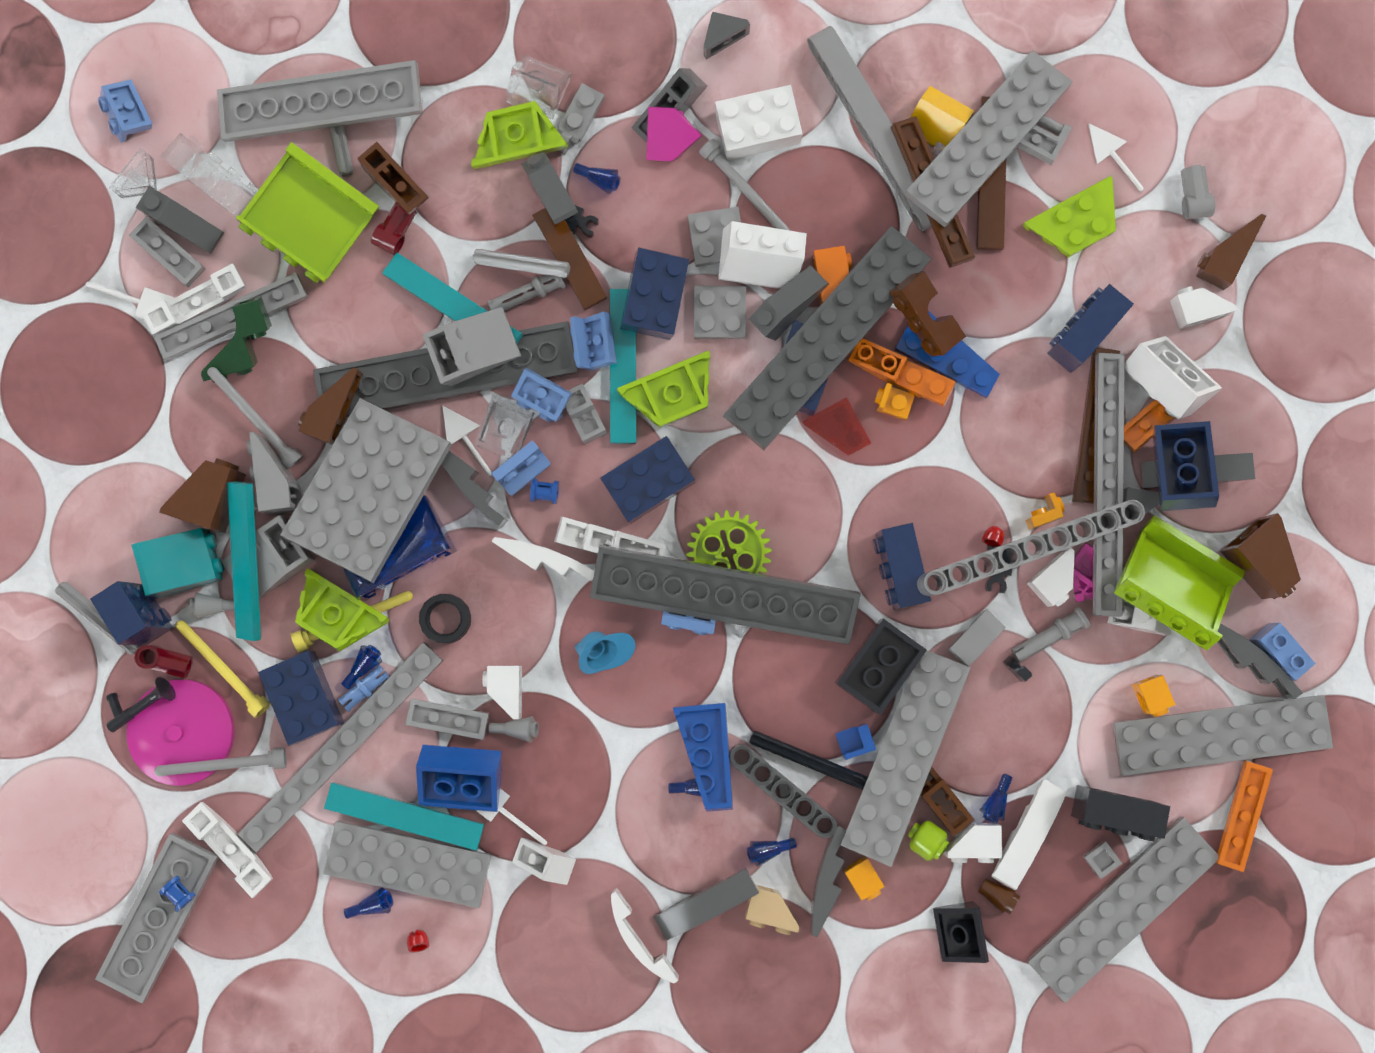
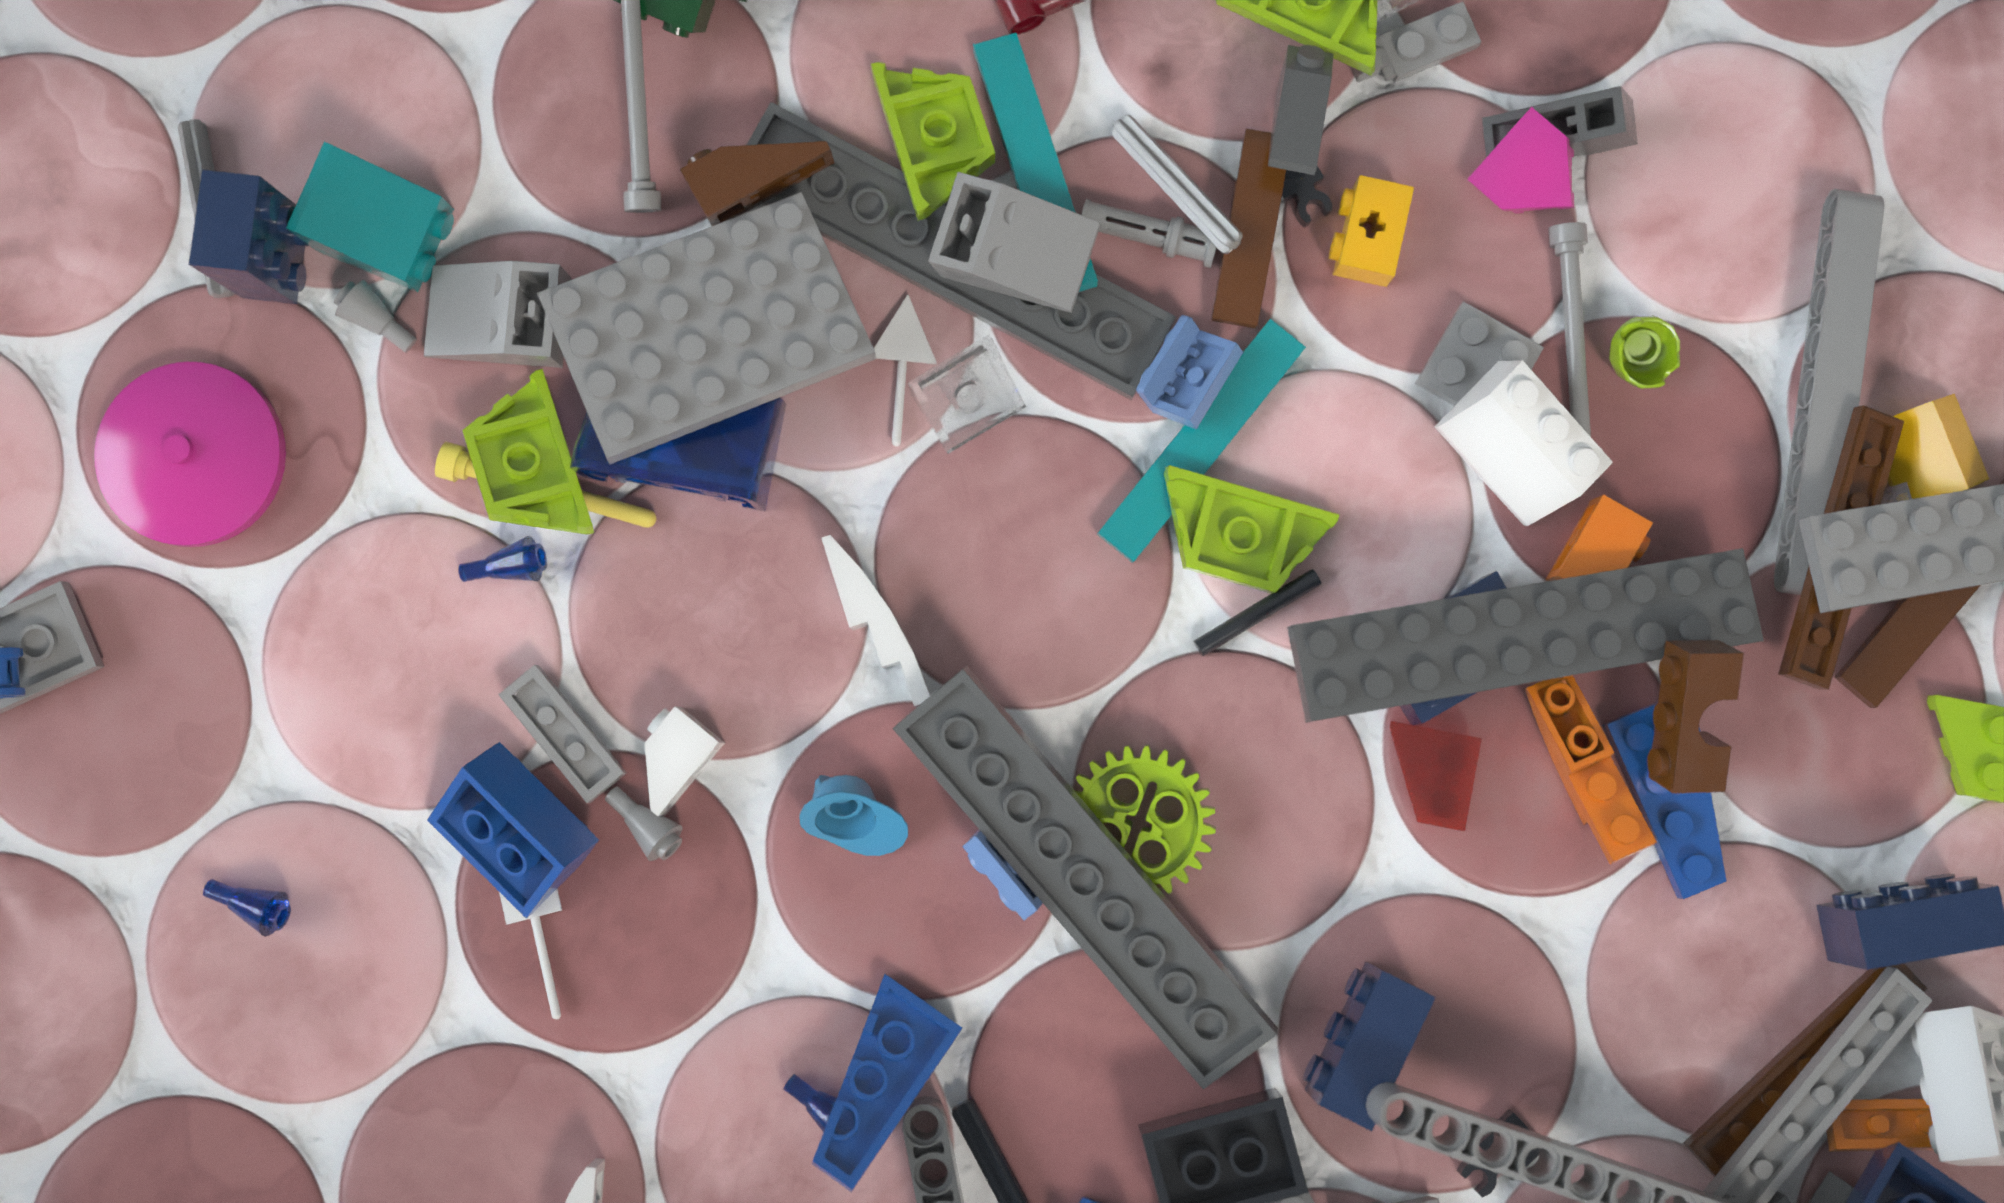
camera: 35 degrees right, 0 degrees up
(162, 690) = (209, 377): black piece -> none
(165, 661) = (245, 340): dark red piece -> none
(205, 496) = (484, 160): reddish brown slope -> none
(229, 847) = (126, 668): white slope -> none
(244, 560) = (462, 288): teal tile -> none
(256, 704) = (321, 497): light yellow piece -> none
(275, 485) = (588, 218): light grey slope -> none
(275, 758) = (286, 595): light grey piece -> none
(301, 697) = (387, 540): dark blue brick -> none
(340, 747) = (387, 652): light grey plate -> none
(363, 688) = (483, 597): medium blue pin -> none
(396, 324) = (934, 131): none -> lime wing
(404, 816) = (396, 819): teal tile -> none
(407, 864) = (347, 889): light grey plate -> none
(417, 941) = (273, 1007): red hinge -> none
(430, 604) = (646, 567): black tyre -> none
(463, 477) = (855, 415): dark grey slope -> none
(521, 468) = (945, 469): medium blue bracket -> none
(541, 395) = (1054, 390): medium blue bracket -> none
(544, 491) = (951, 526): blue bush -> none
(544, 861) = (533, 1042): white slope -> none
(584, 415) = (1092, 462): light grey slope -> none
(590, 536) = (963, 644): white slope -> none
(603, 178) = (1385, 156): clear blue cone -> none
(622, 201) = (1387, 209): none -> yellow brick
(648, 480) = (1108, 628): dark blue brick -> none
(654, 293) = (1328, 375): dark blue brick -> none
(707, 421) = (1257, 612): none -> black bar
(719, 312) = (1397, 474): light grey plate -> none
(723, 32) = (1721, 87): dark grey slope -> none
(758, 122) = (1669, 252): white brick -> none
(783, 173) = (1645, 351): none -> lime hair
(788, 303) = (1507, 540): dark grey slope -> none
(894, 401) = (1543, 798): light orange bracket -> none
(993, 536) = (1531, 1105): red hinge -> none
(1042, 516) = (1625, 1134): light orange bracket -> none

